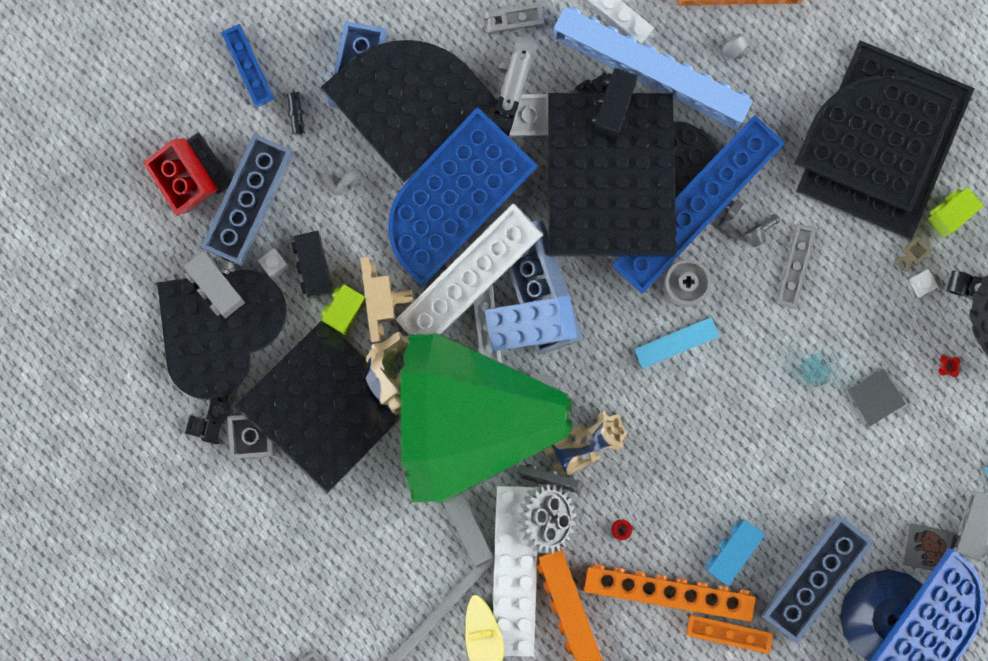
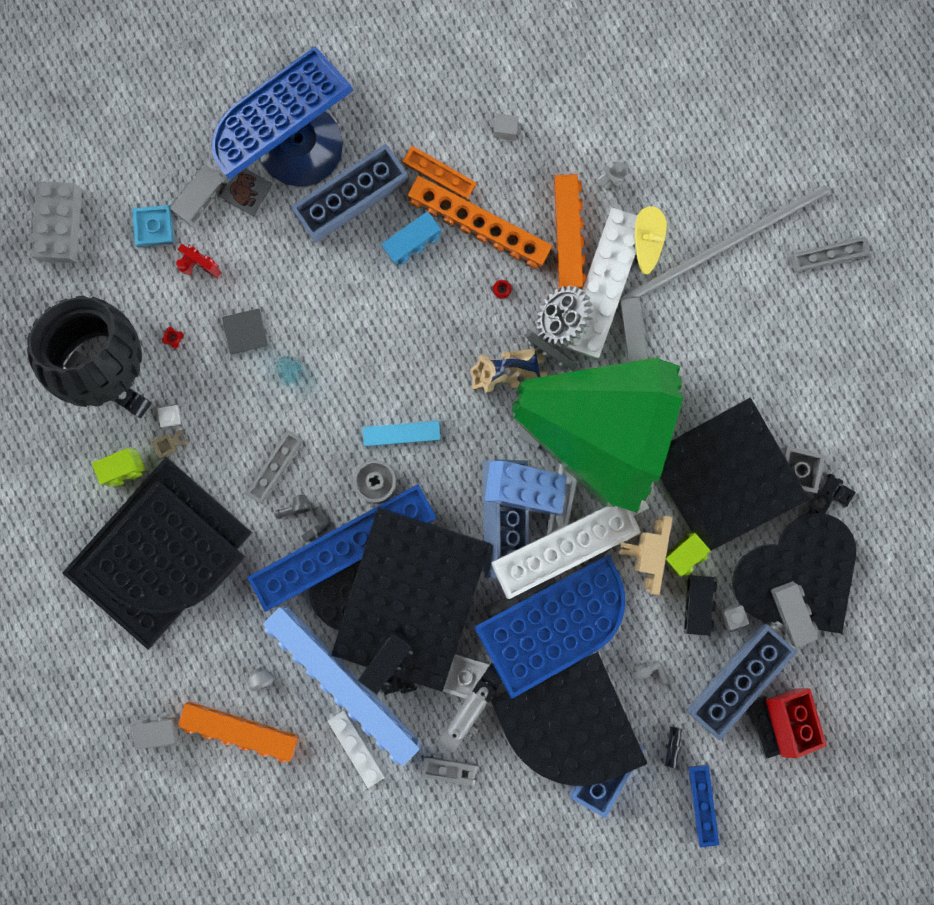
camera: 165 degrees left, 0 degrees up
(382, 377) = (668, 489): tan hips -> none
(957, 456) = (192, 257): none -> red plate

